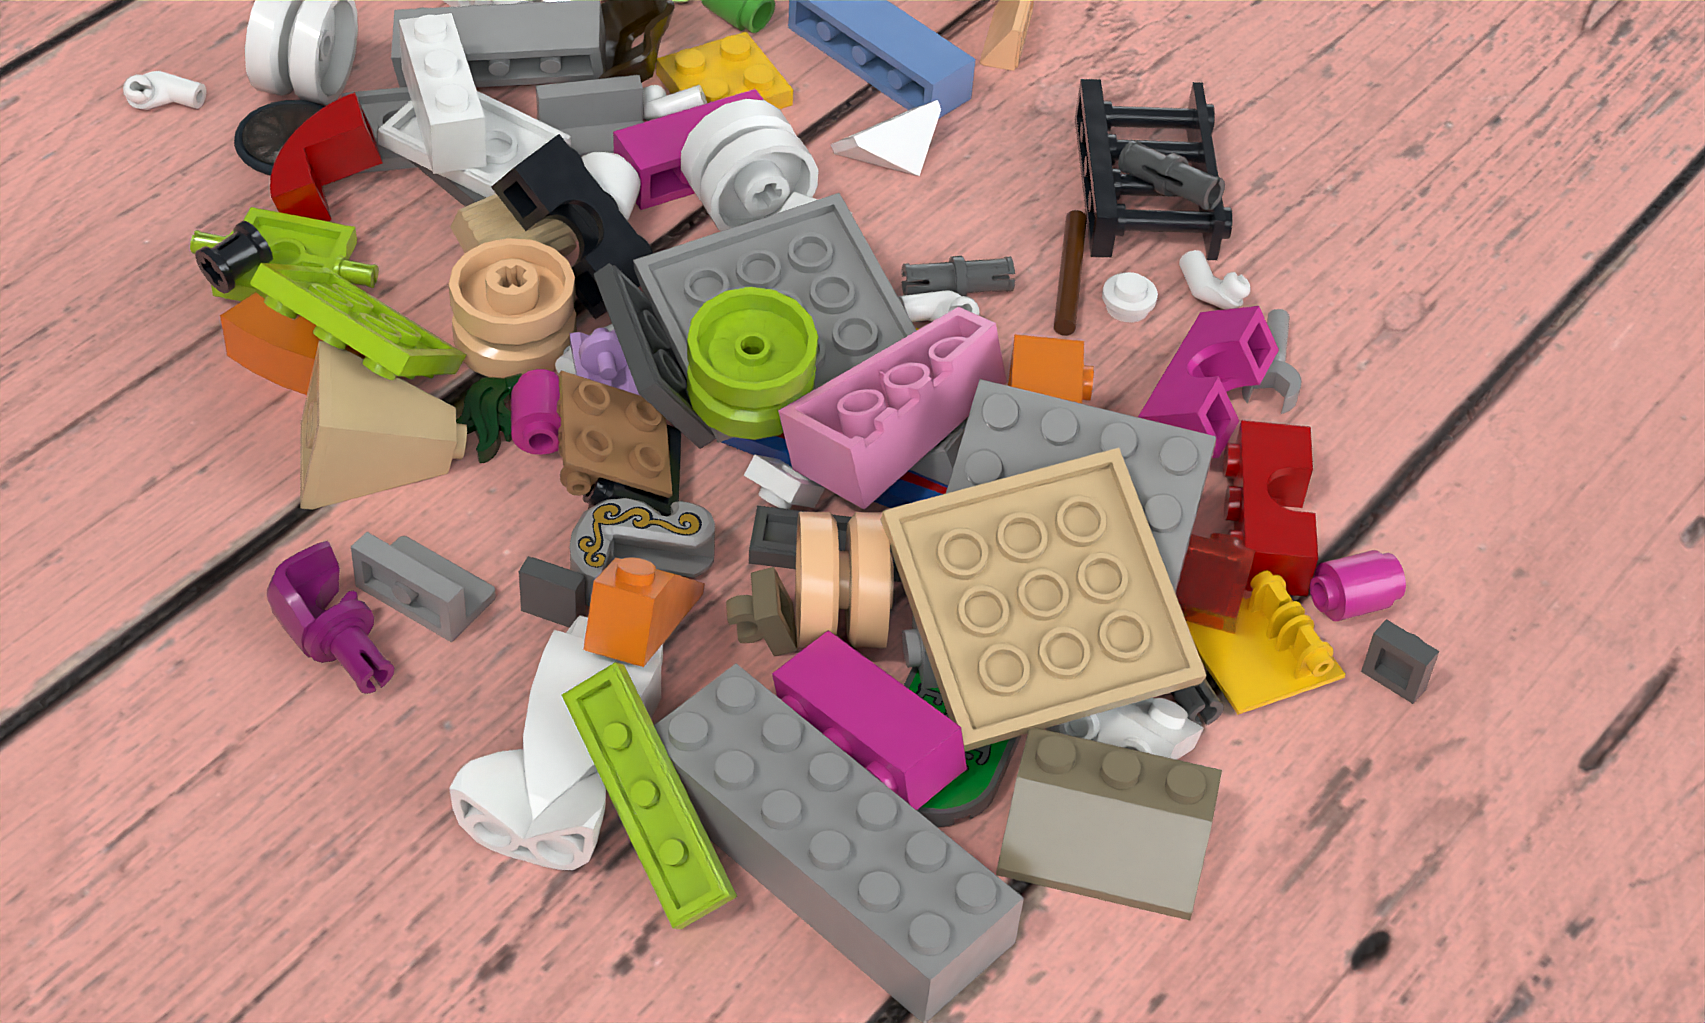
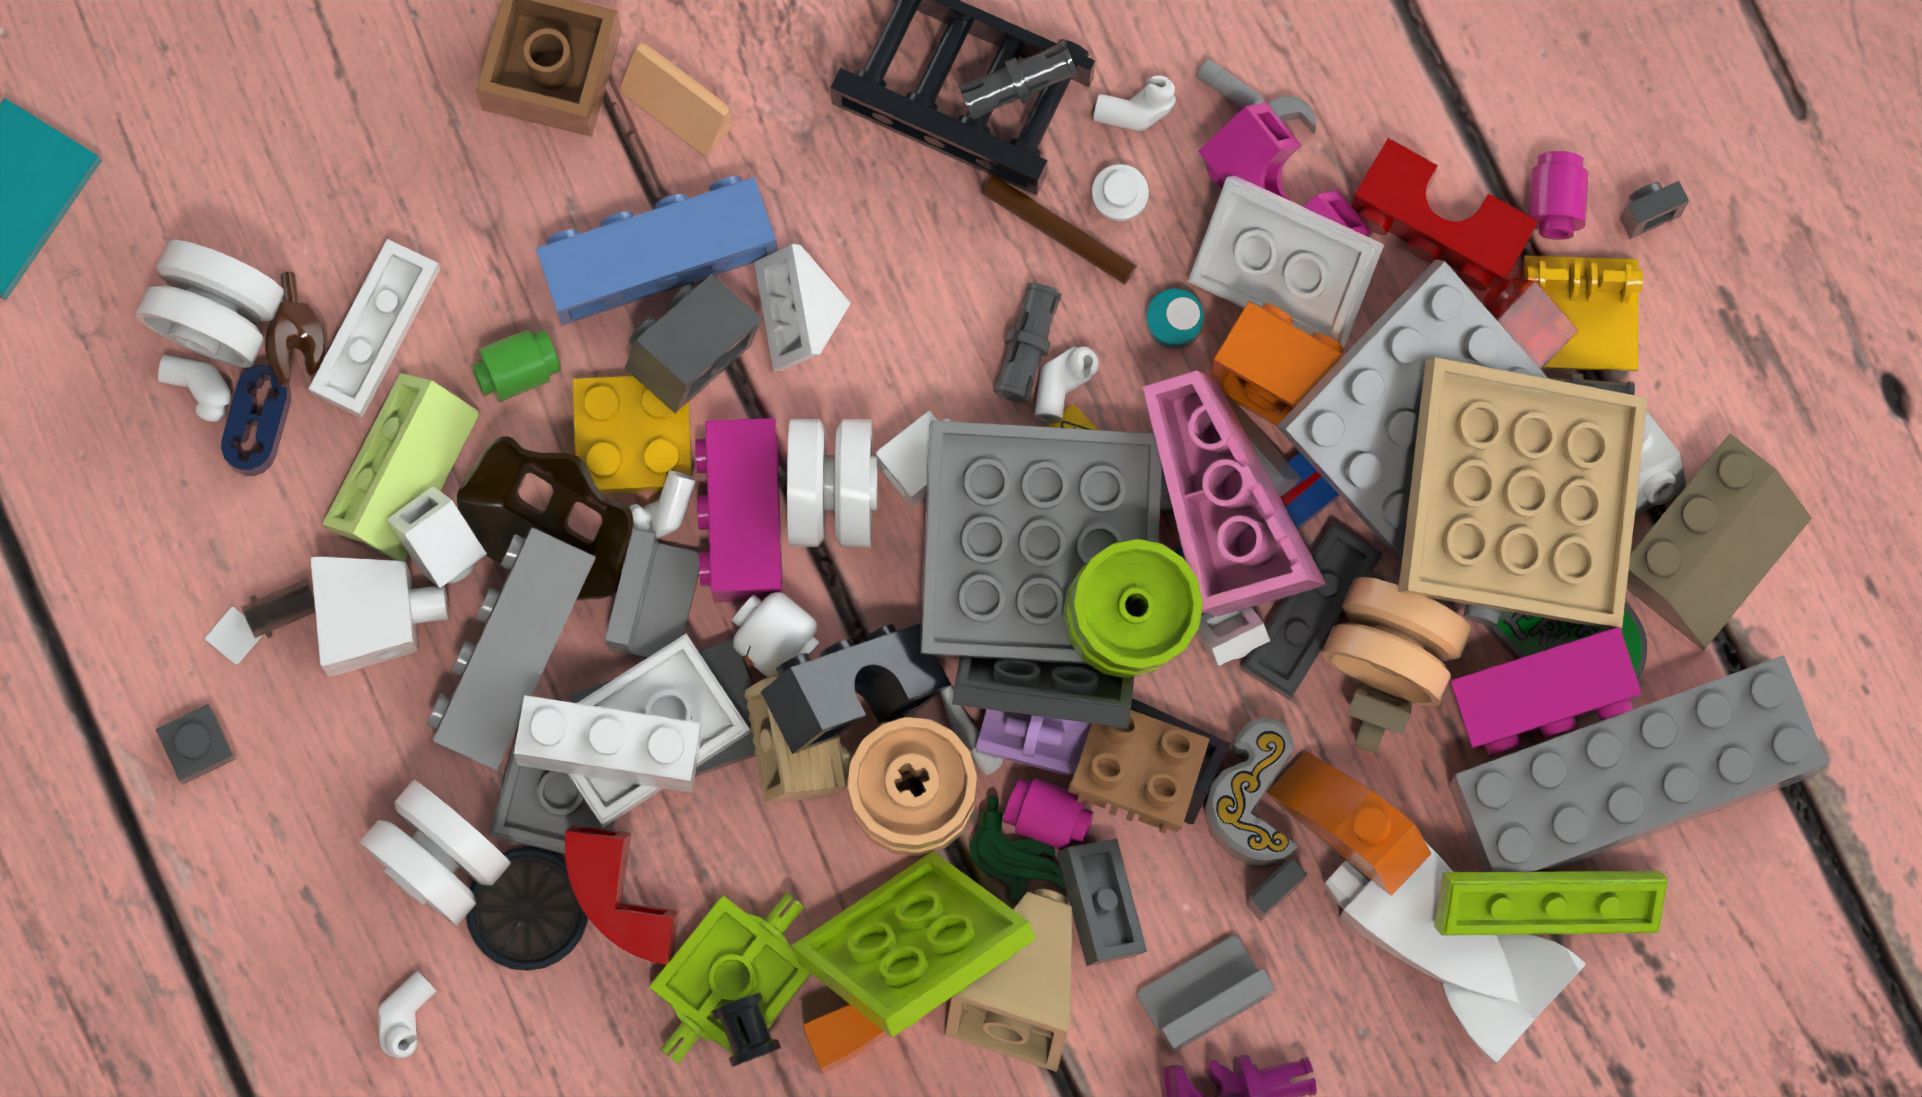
camera: 60 degrees left, 30 degrees up
(474, 472) = (1101, 902): none -> dark grey plate
(816, 70) = (691, 342): none -> dark grey brick
(1153, 379) = (1285, 257): none -> white tile

